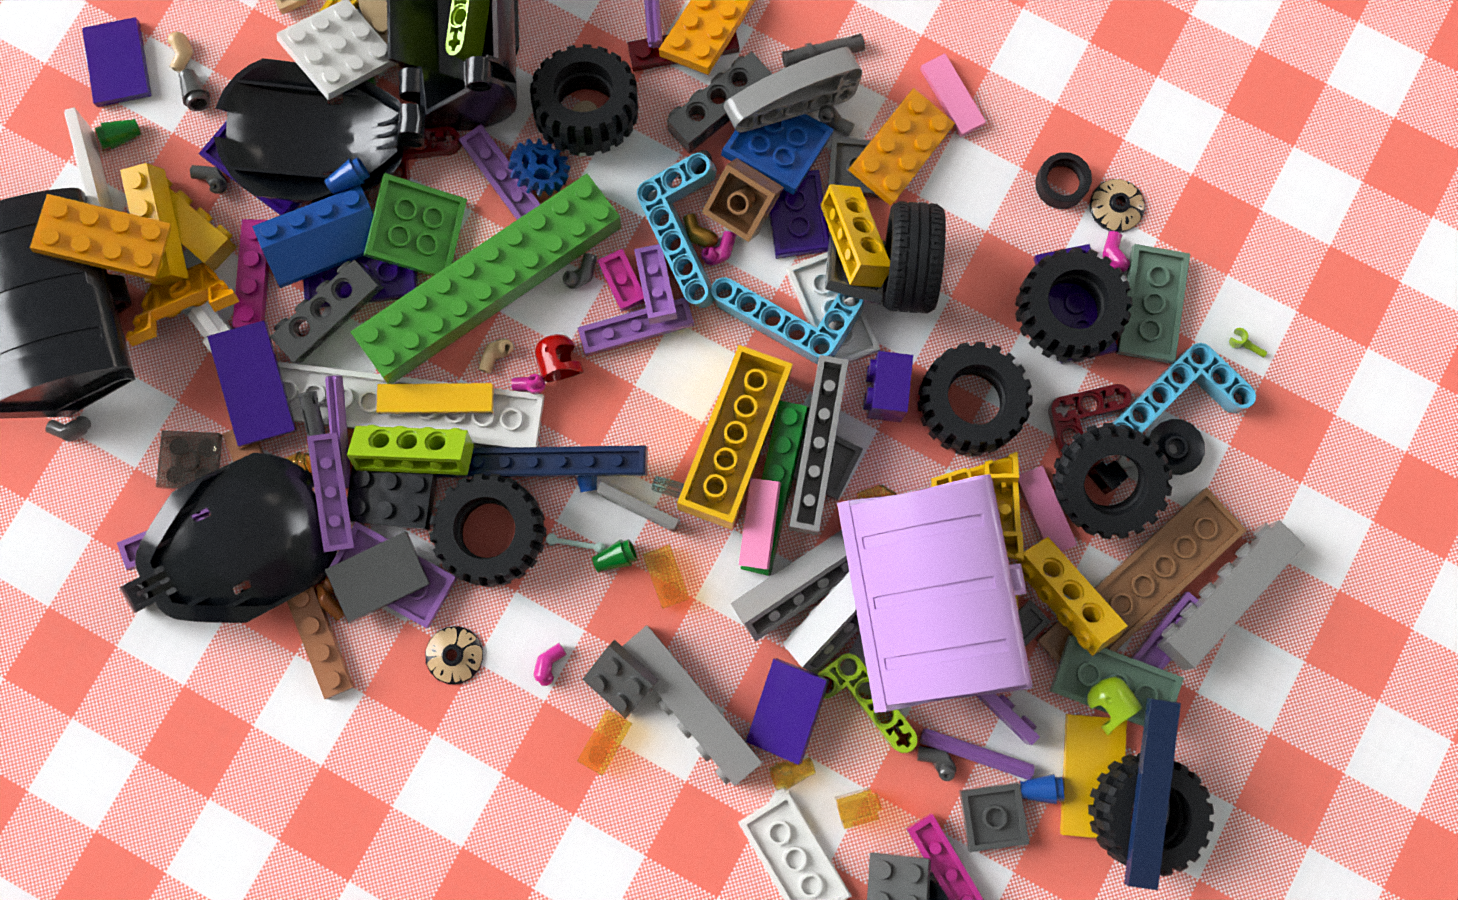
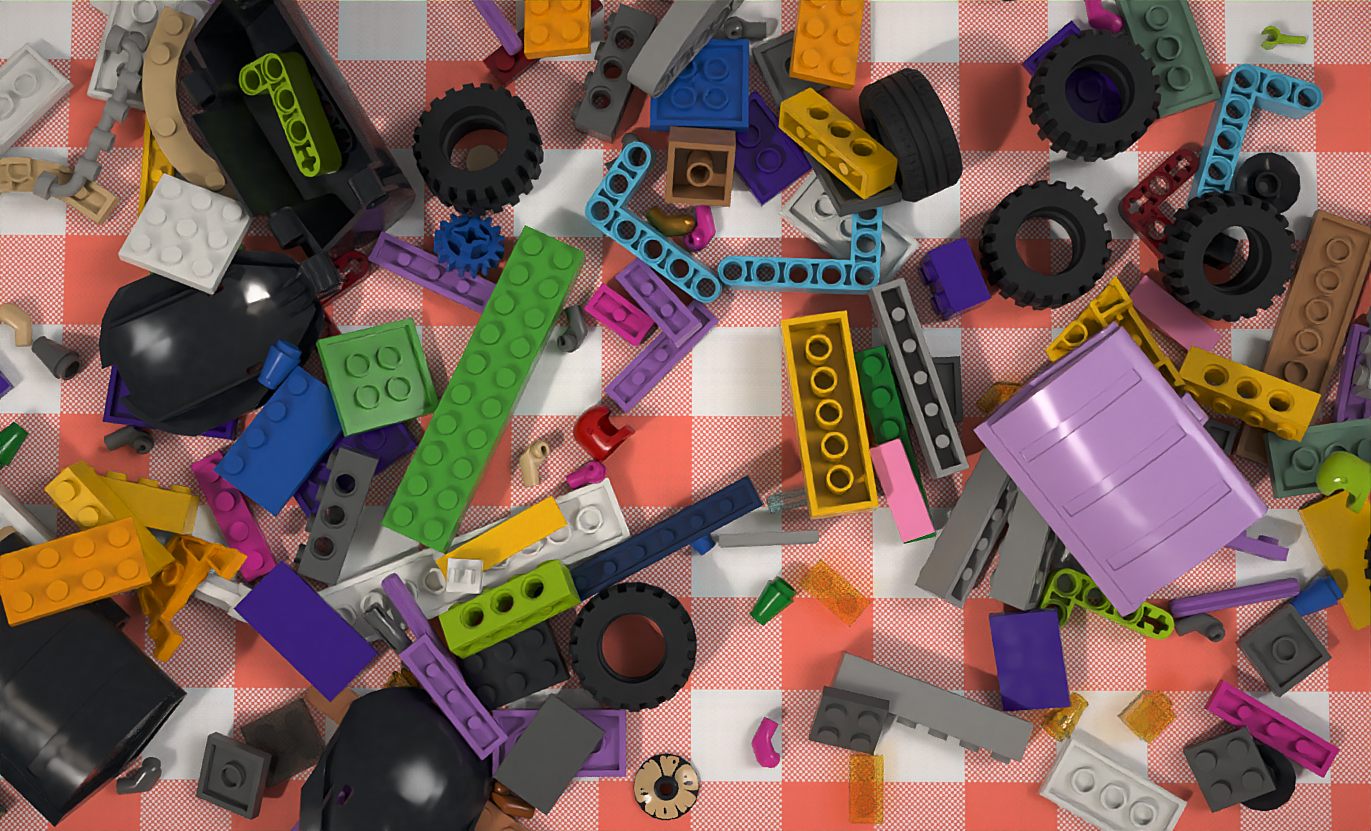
camera: 30 degrees left, 5 degrees up
(135, 462) = (233, 775): none -> dark grey plate
(391, 406) = (464, 575): none -> white tile
(552, 540) = (698, 617): light aqua hinge -> none

